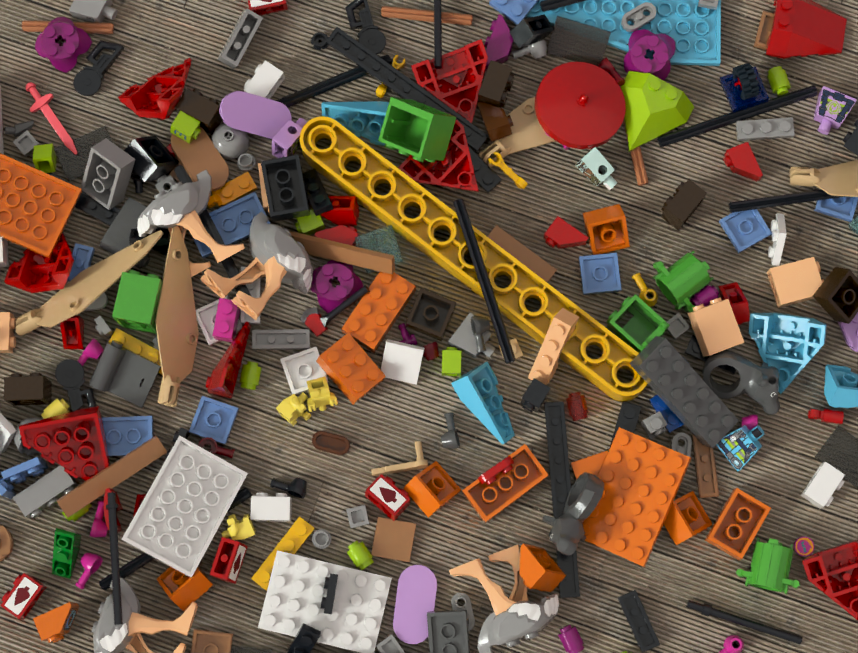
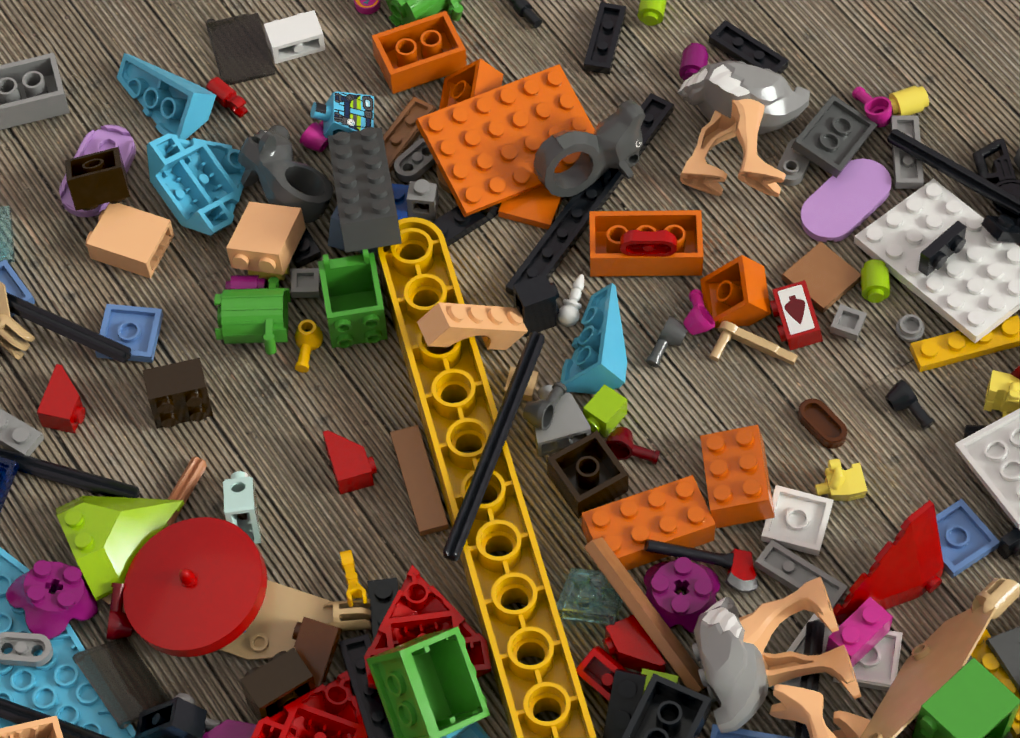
camera: 145 degrees left, 20 degrees down
(216, 449) = (981, 503): dark red bar -> none
(250, 375) = (864, 558): lime brick -> none
(271, 508) = (951, 393): white brick -> none
(320, 395) = (798, 475): light yellow piece -> none
(402, 361) = (665, 447): white tile -> none
(408, 339) = (638, 472): magenta piece -> none
(440, 457) = (699, 318): none -> dark pink bar
(518, 415) = (569, 312): none -> white bar
(539, 569) = (675, 133): orange slope -> none
(577, 406) = (493, 273): clear red brick -> none
(600, 273) = (343, 394): medium blue plate -> none
(606, 229) = (289, 437): orange slope -> none
(737, 301) = (214, 264): red slope -> none
(778, 236) = (103, 283): white plate -> none

